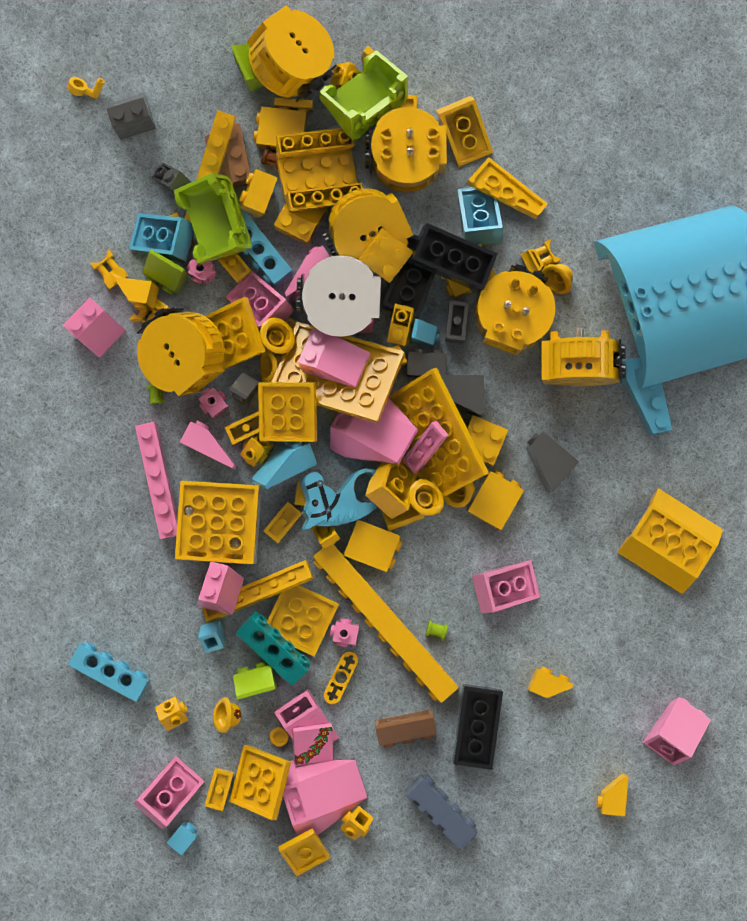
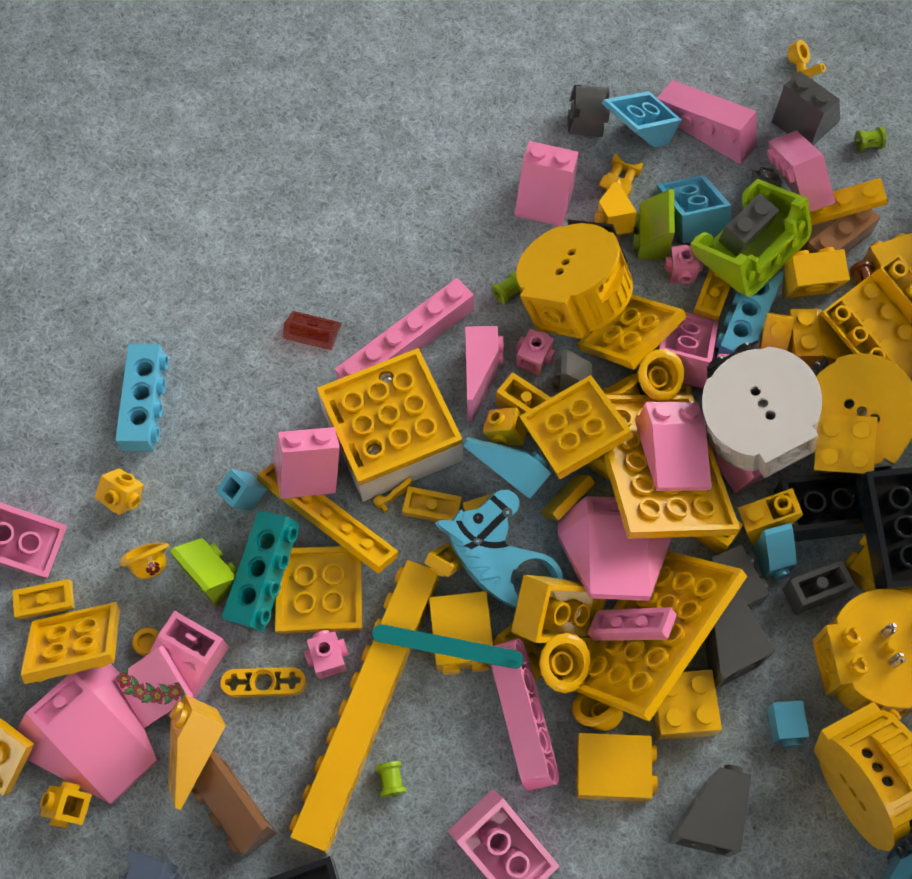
camera: 65 degrees right, 20 degrees down
(48, 264) = (587, 111): none -> dark grey brick
(77, 231) = (645, 116): none -> medium azure slope
(98, 185) = (713, 120): none -> bright pink wedge
(115, 538) = (311, 330): none -> clear red slope
(173, 84) = (870, 139): none -> lime bush
(177, 154) = (802, 168): none -> bright pink wedge
(204, 217) = (748, 225): none -> dark grey brick
(262, 552) = (381, 501): none -> yellow piece
(288, 247) = (776, 331): none -> yellow plate
(324, 442) = (567, 497): none -> yellow tile
(361, 735) = (193, 736): none -> yellow slope
(381, 560) = (448, 646): none -> teal piece
(440, 536) = (526, 722): none -> bright pink beam
(522, 388) = (788, 723): none -> medium azure brick

